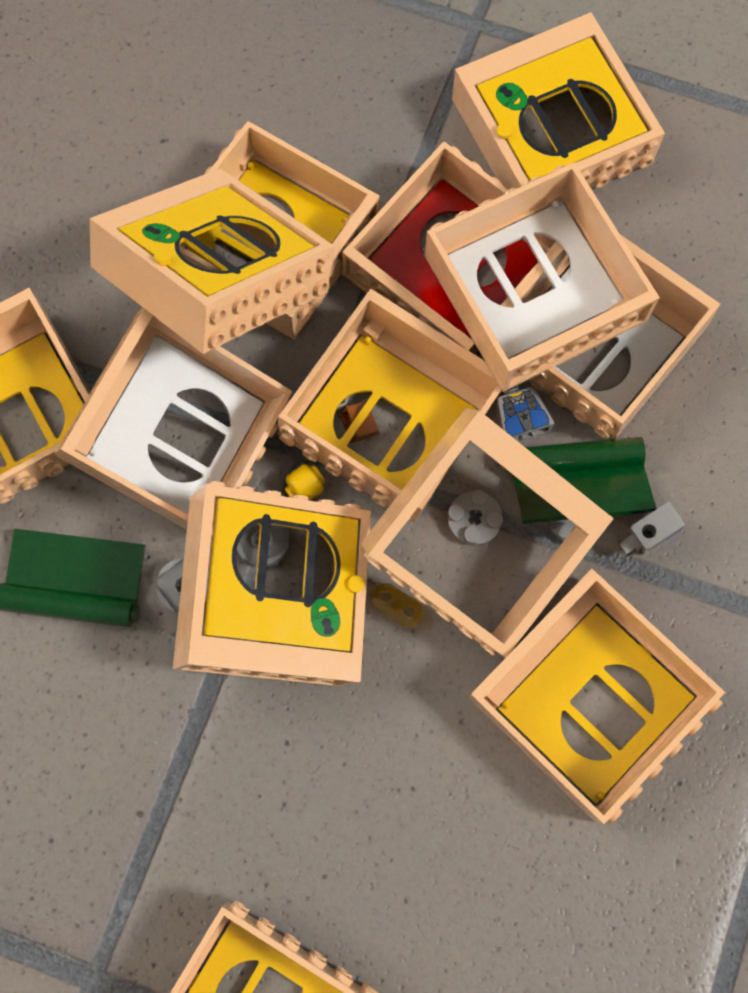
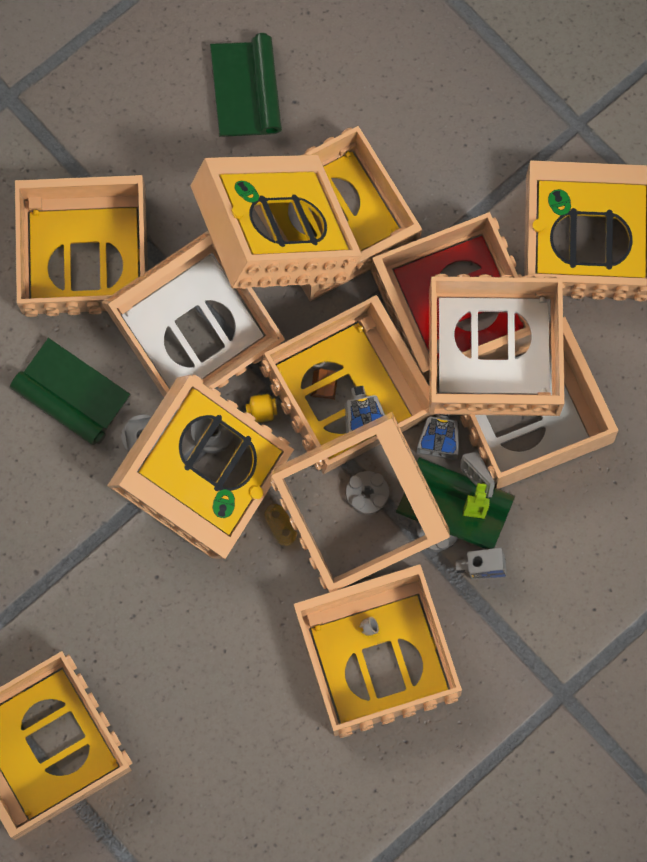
camera: 25 degrees right, 0 degrees up
(101, 149) = (246, 87): none -> dark green door
(421, 429) = (361, 409): none -> torso
(565, 670) = (369, 626): none -> light grey hinge
(590, 431) = (477, 472): none -> light grey slope
(610, 467) = (477, 505): none -> lime plate

